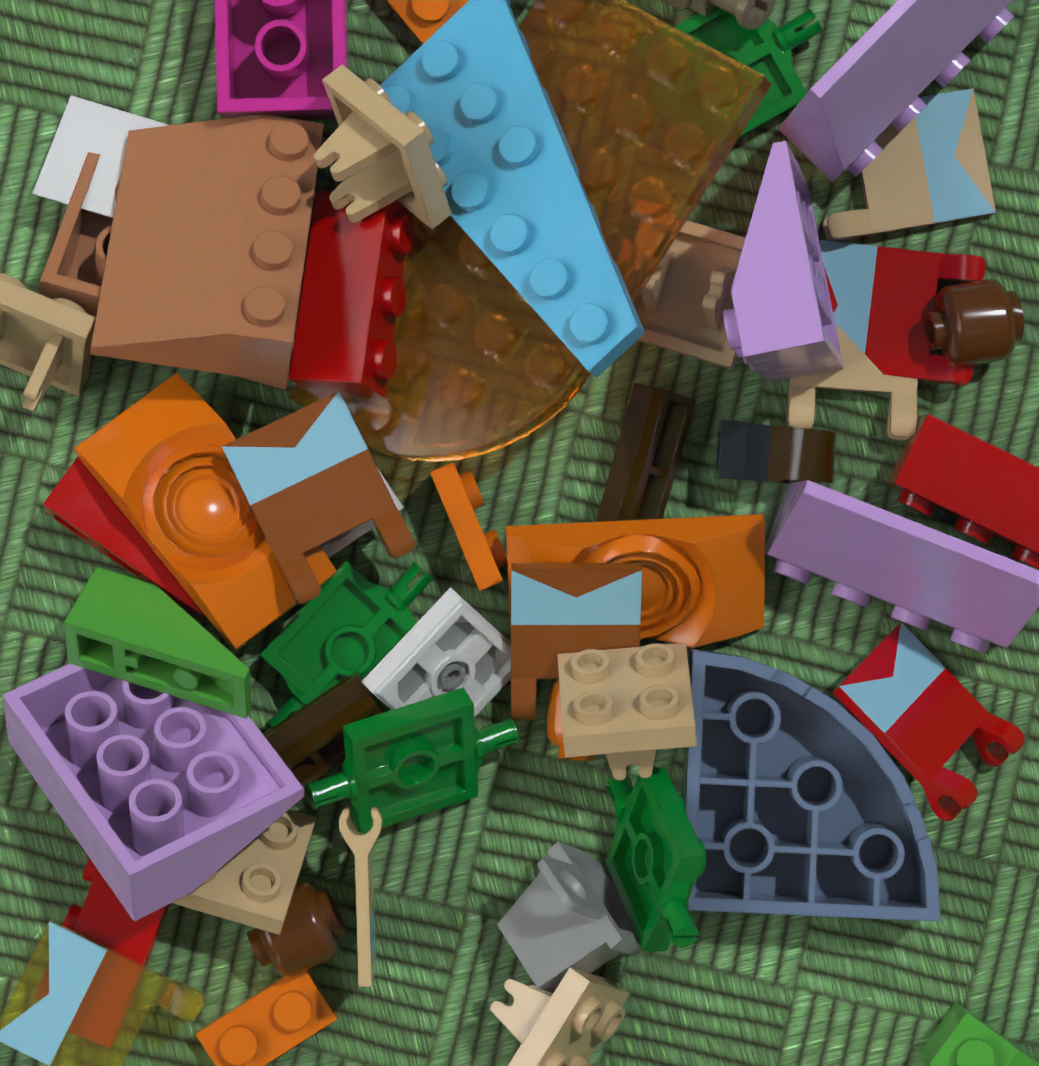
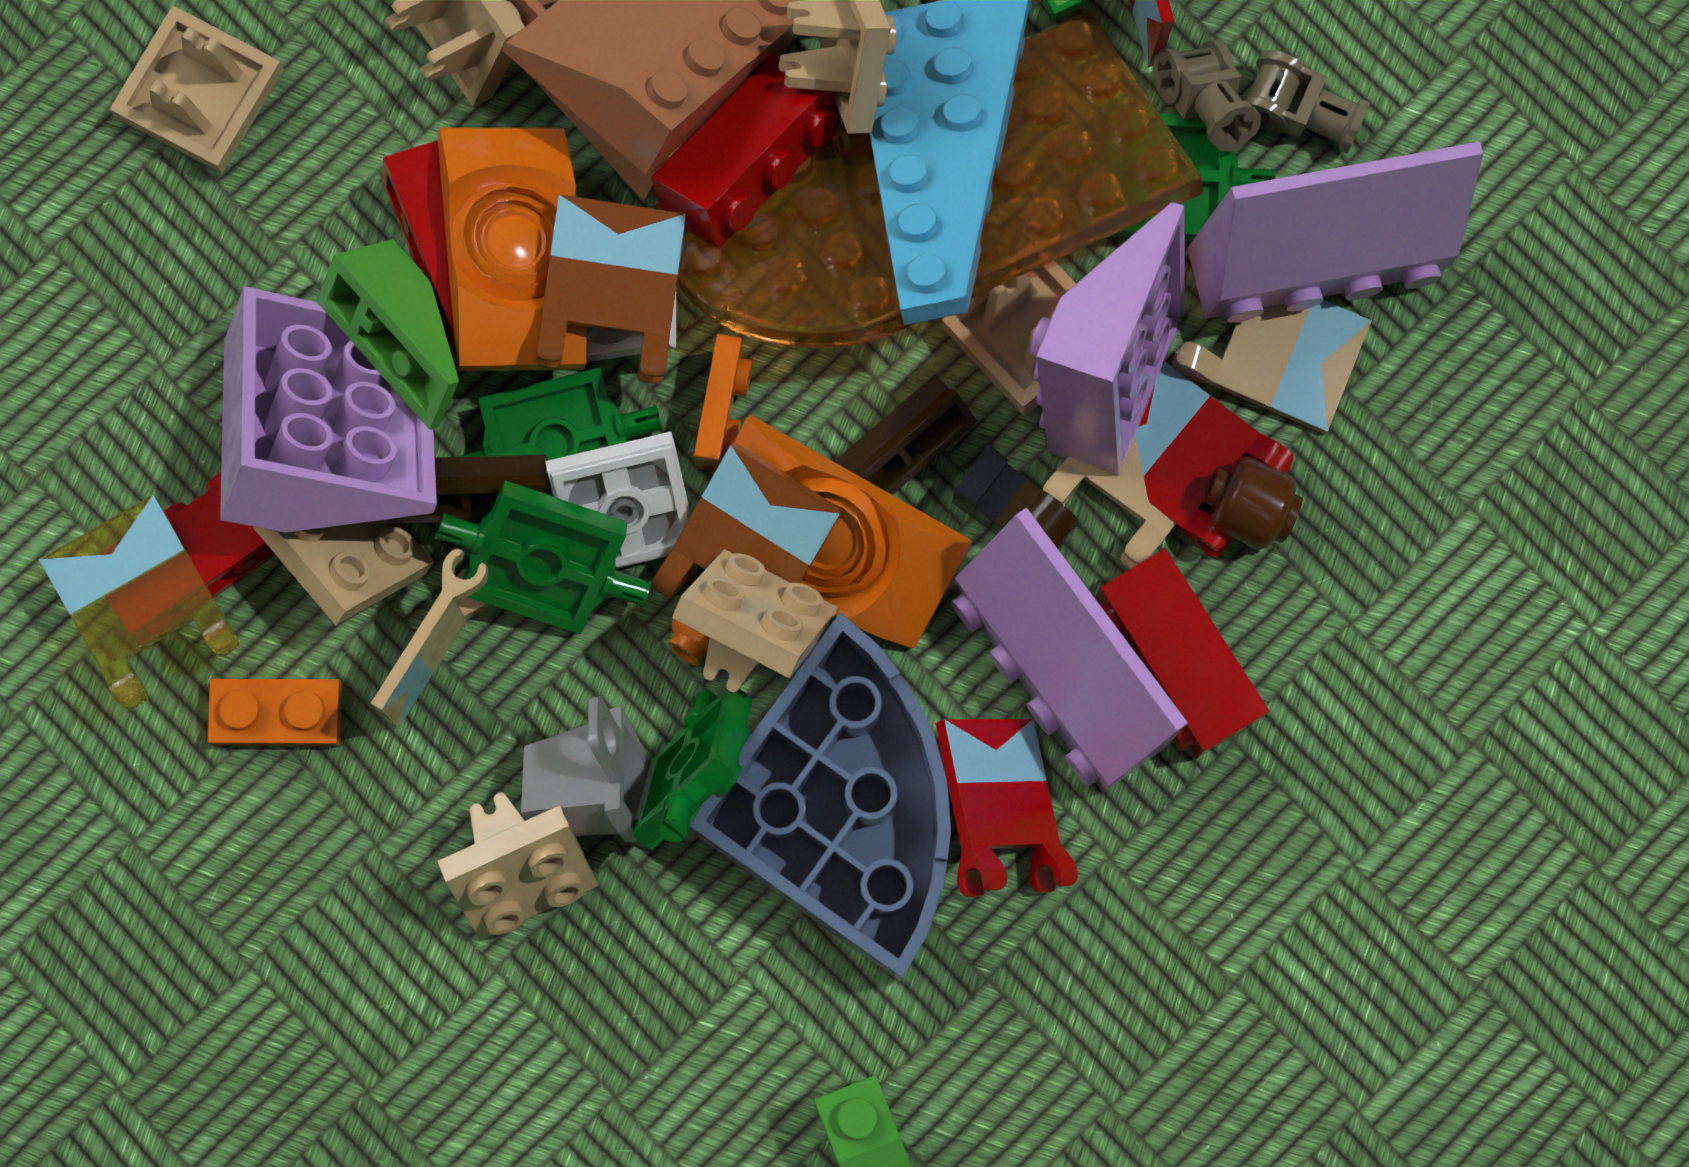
camera: 30 degrees right, 10 degrees down
(307, 936) = (356, 649): reddish brown head -> none

